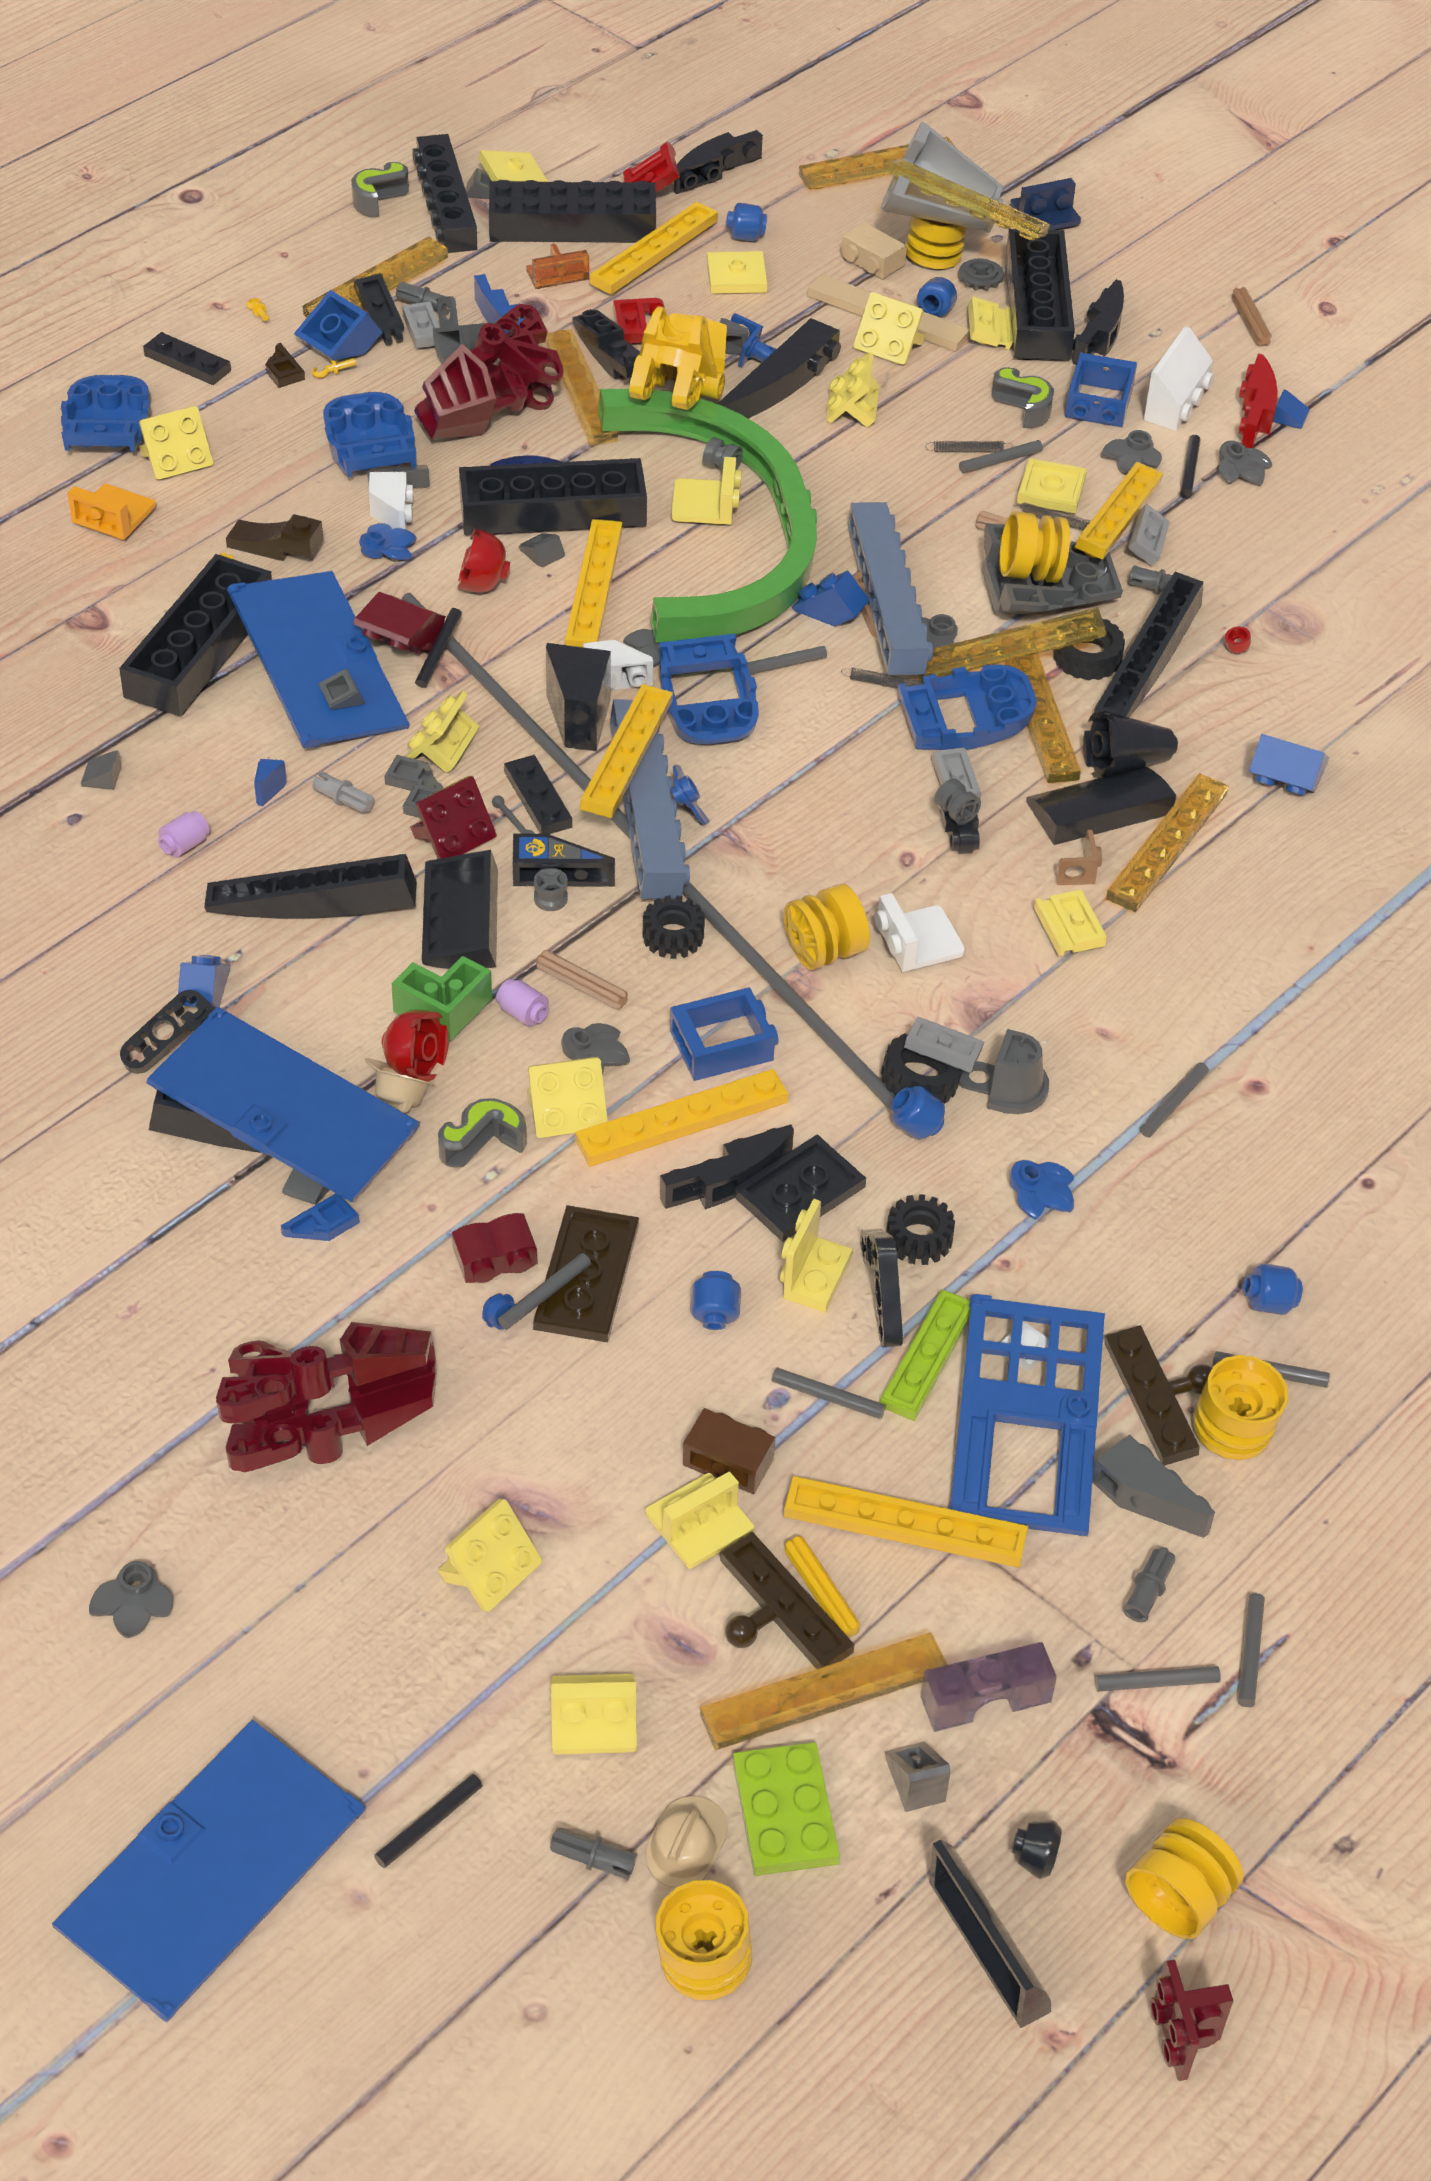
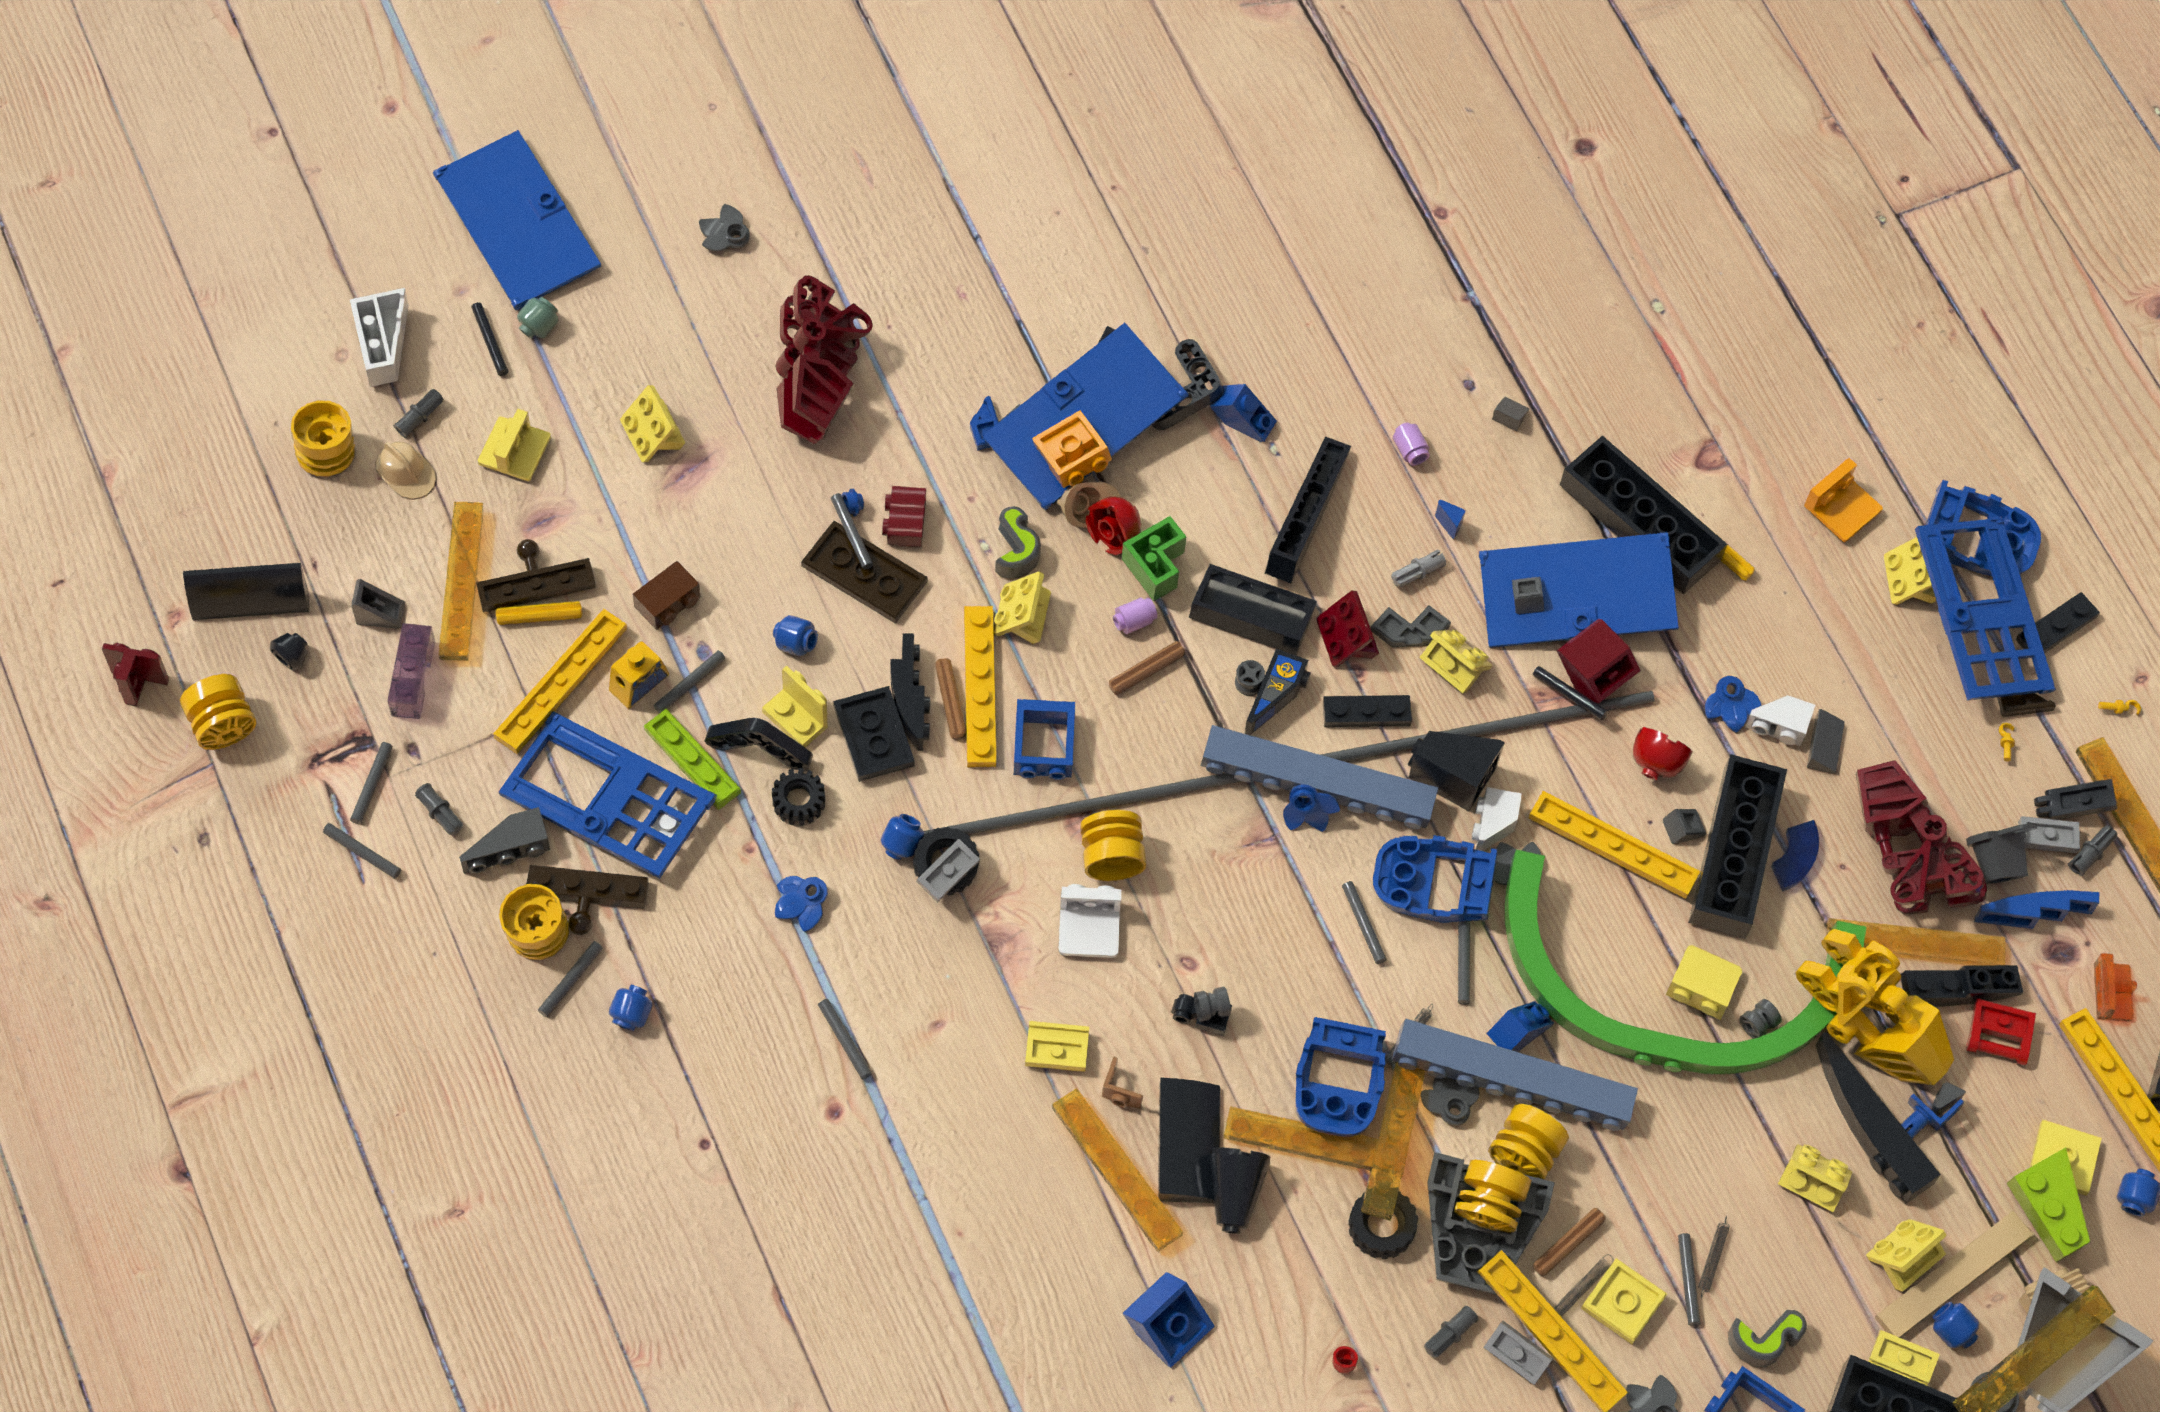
camera: 110 degrees right, 15 degrees up
(214, 381) = (1976, 617): none -> blue door
(276, 540) = (1761, 615): dark brown slope -> none
(338, 328) = (2052, 754): blue slope -> none
(344, 1089) = (1072, 449): none -> light orange plate
(369, 432) = (1913, 730): blue slope -> none
(375, 1762) = (537, 317): none -> sand green head
(495, 1948) = (381, 333): none -> white wedge
(498, 802) = (1324, 688): dark grey hinge -> none
(595, 1041) = (1070, 654): dark grey plate -> none
(626, 751) = (1357, 762): yellow plate -> none
(677, 913) = (1173, 734): black tyre -> none
(701, 1518) = (624, 559): light yellow bracket -> none
(713, 1136) = (950, 698): none -> medium nougat axle
(782, 739) = (1364, 922): none -> dark grey bar
(785, 1809) = (396, 530): lime plate -> none
(791, 258) = (2052, 1204): none -> lime wedge
(858, 1433) = (639, 672): none -> yellow torso
(953, 558) = (1529, 1141): none -> yellow wheel
(956, 765) = (1261, 1035): light grey plate -> none
(1016, 1080) = (914, 929): dark grey container -> none
(1153, 645) = (1352, 1268): black slope -> none

